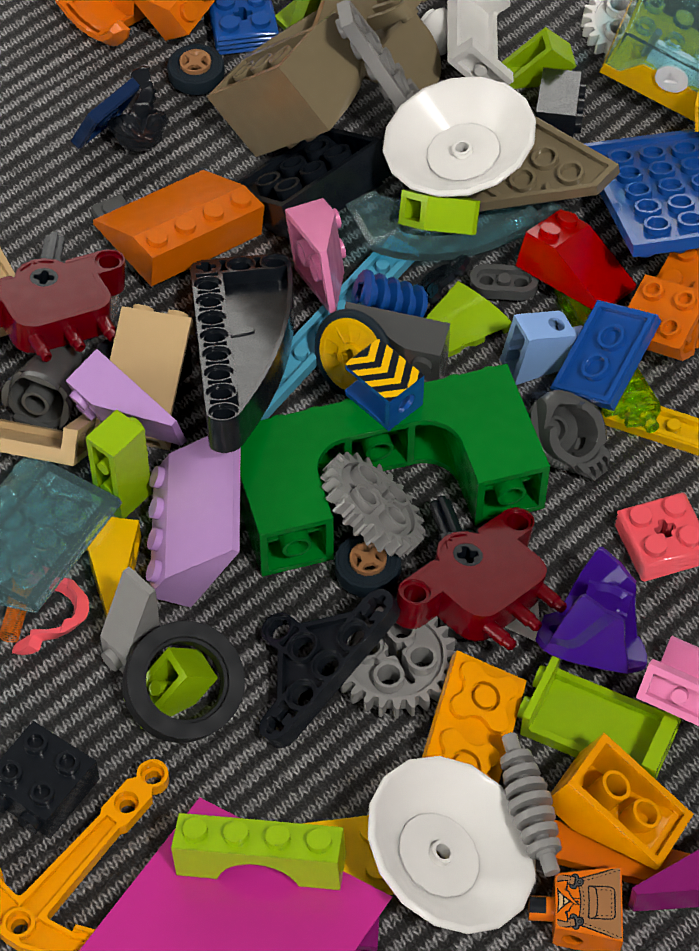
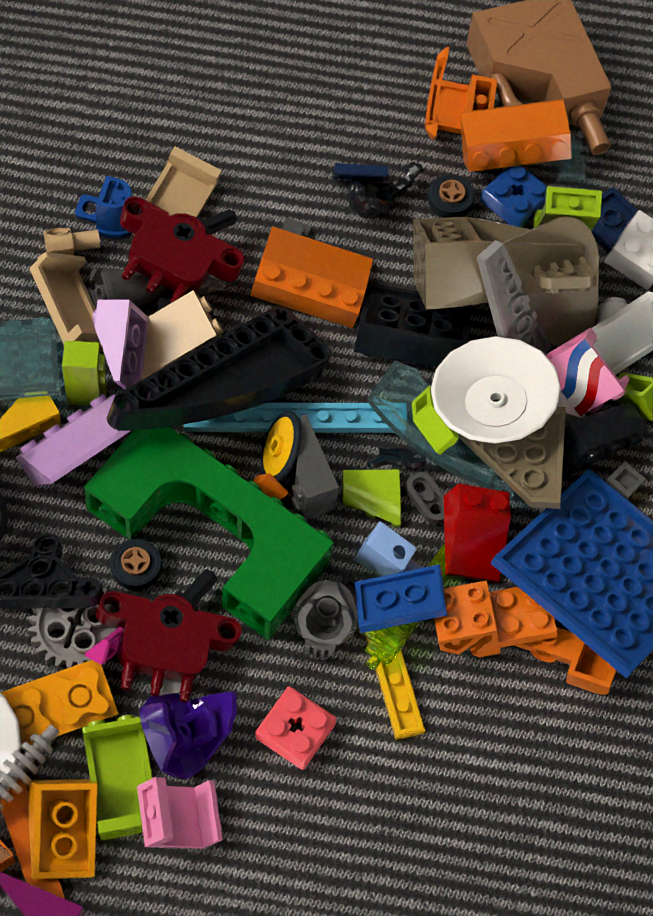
camera: 45 degrees right, 10 degrees up
(318, 249) = (345, 372): bright pink slope -> none
(372, 504) = (170, 536): light grey gear -> none
(386, 384) = (245, 479): piece -> none
(389, 294) = (347, 439): blue piece -> none
(451, 633) = (106, 647): none -> dark pink slope
(492, 60) = (585, 375): none -> panel
(614, 125) = (626, 480): none -> dark grey plate

